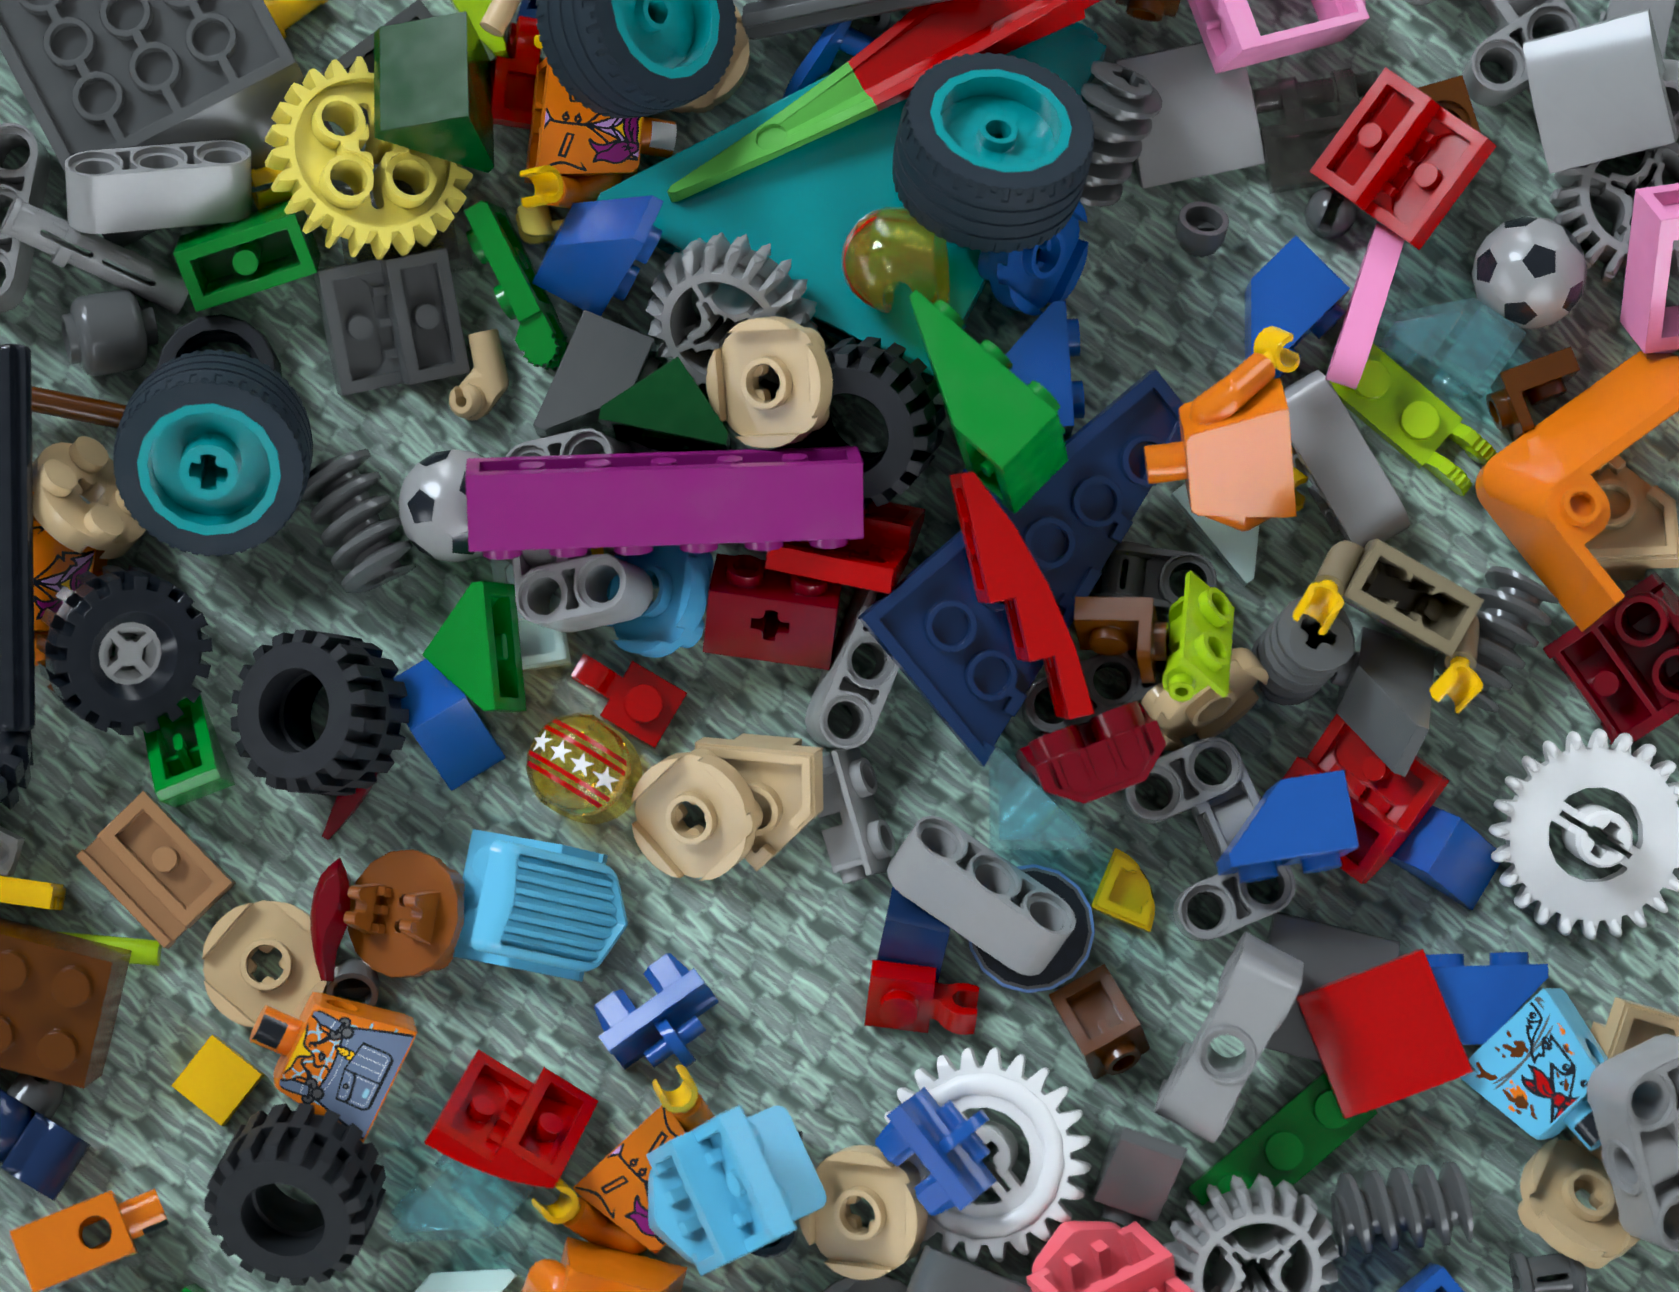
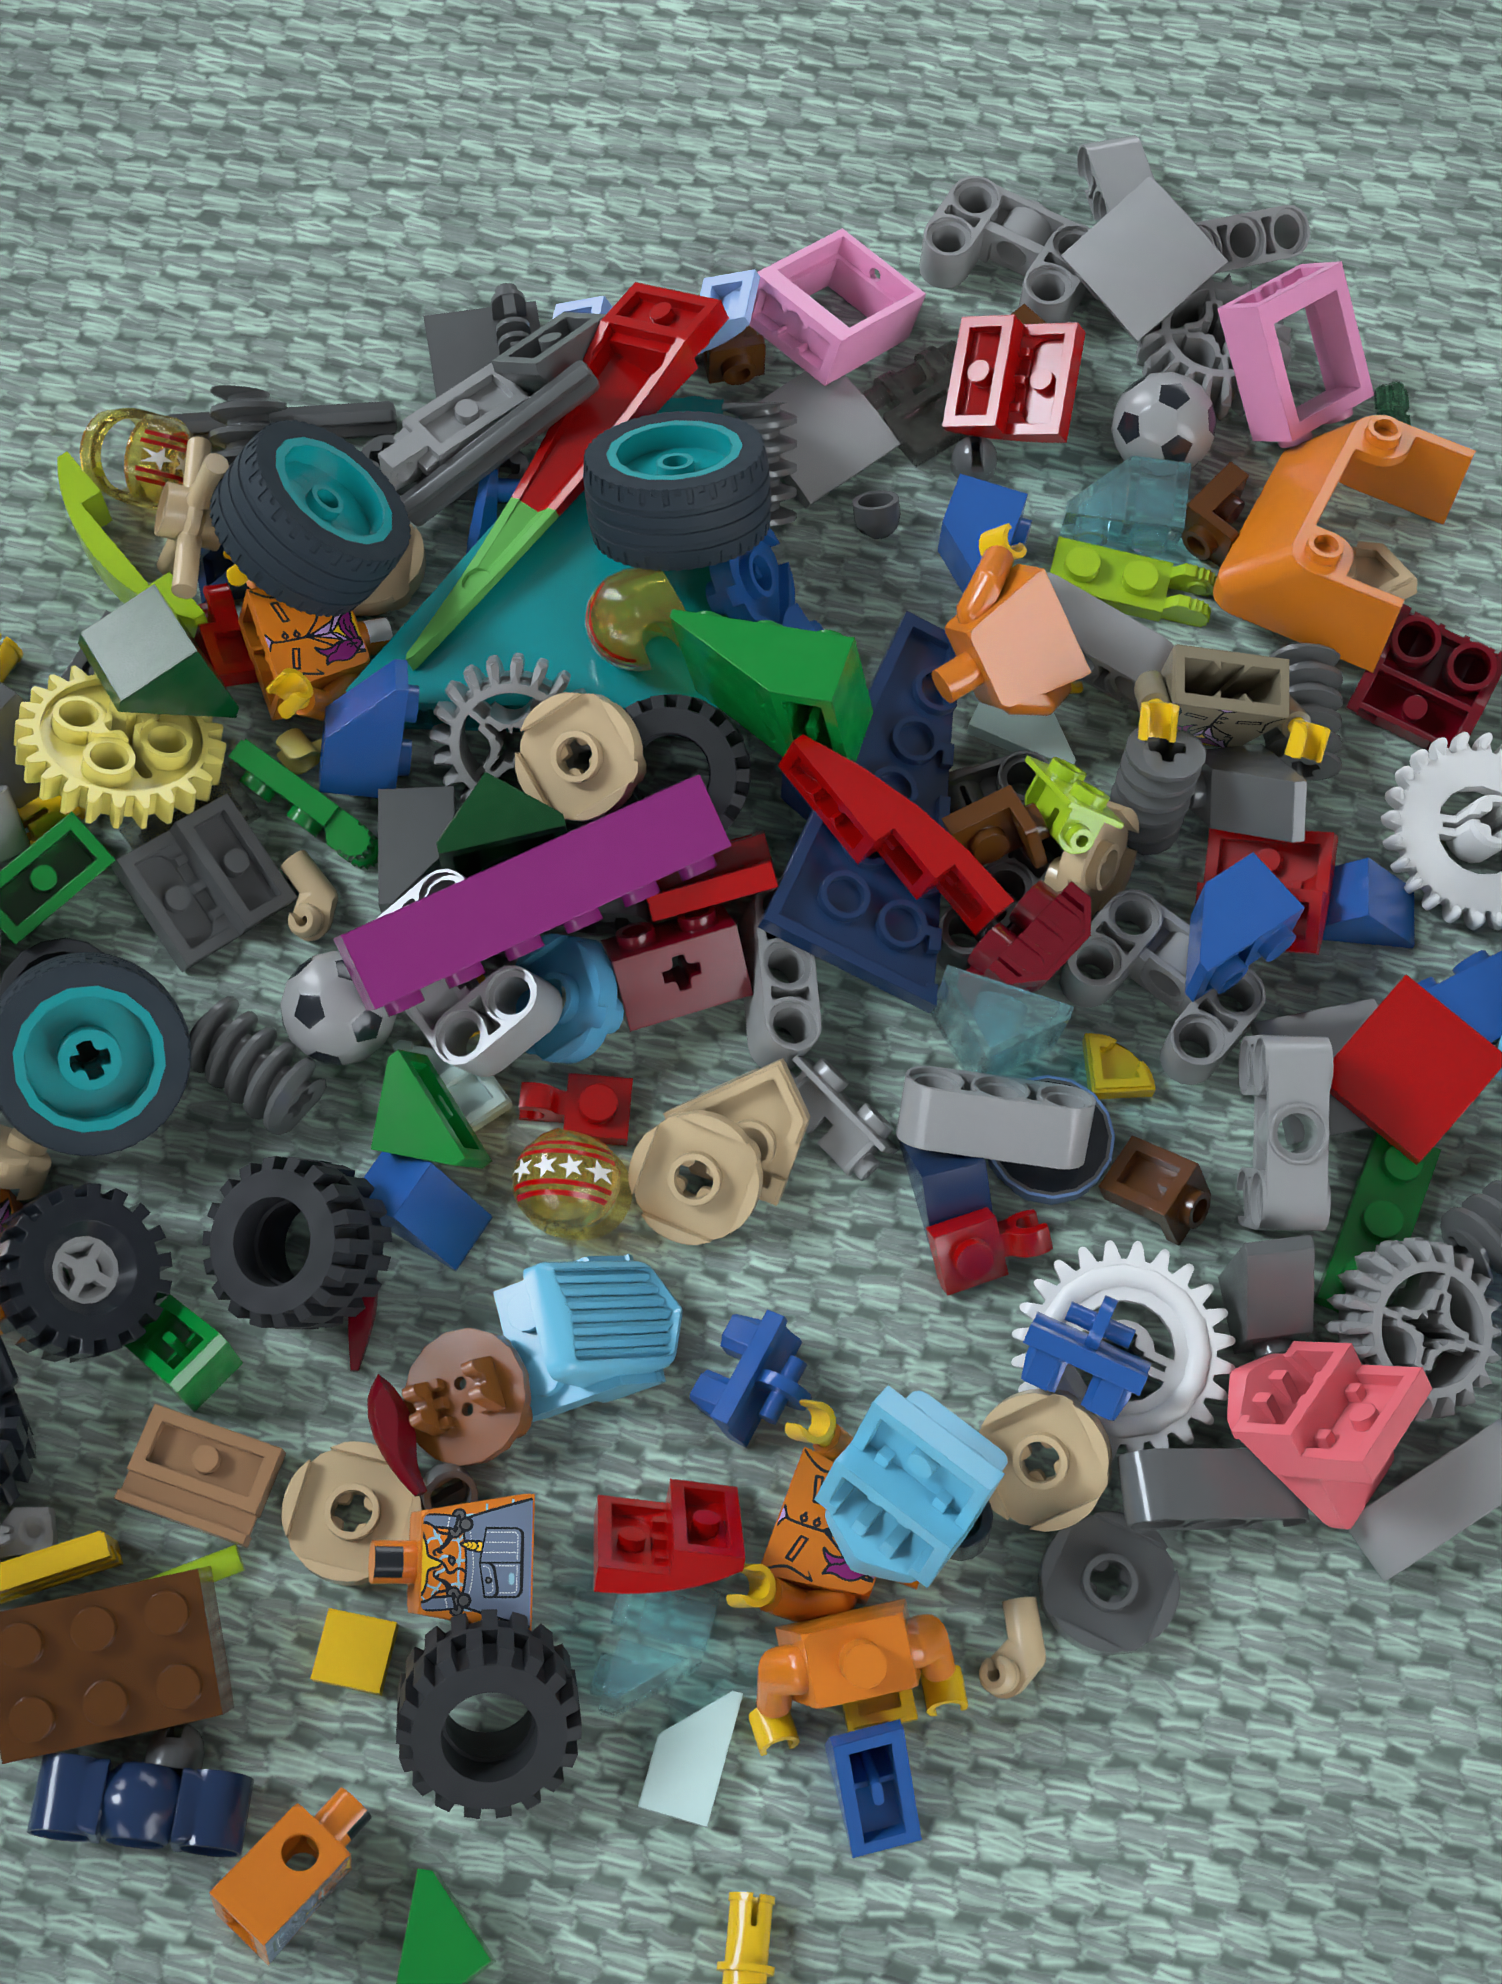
camera: 30 degrees left, 15 degrees down
(1365, 307) = (1047, 507): bright pink beam -> none

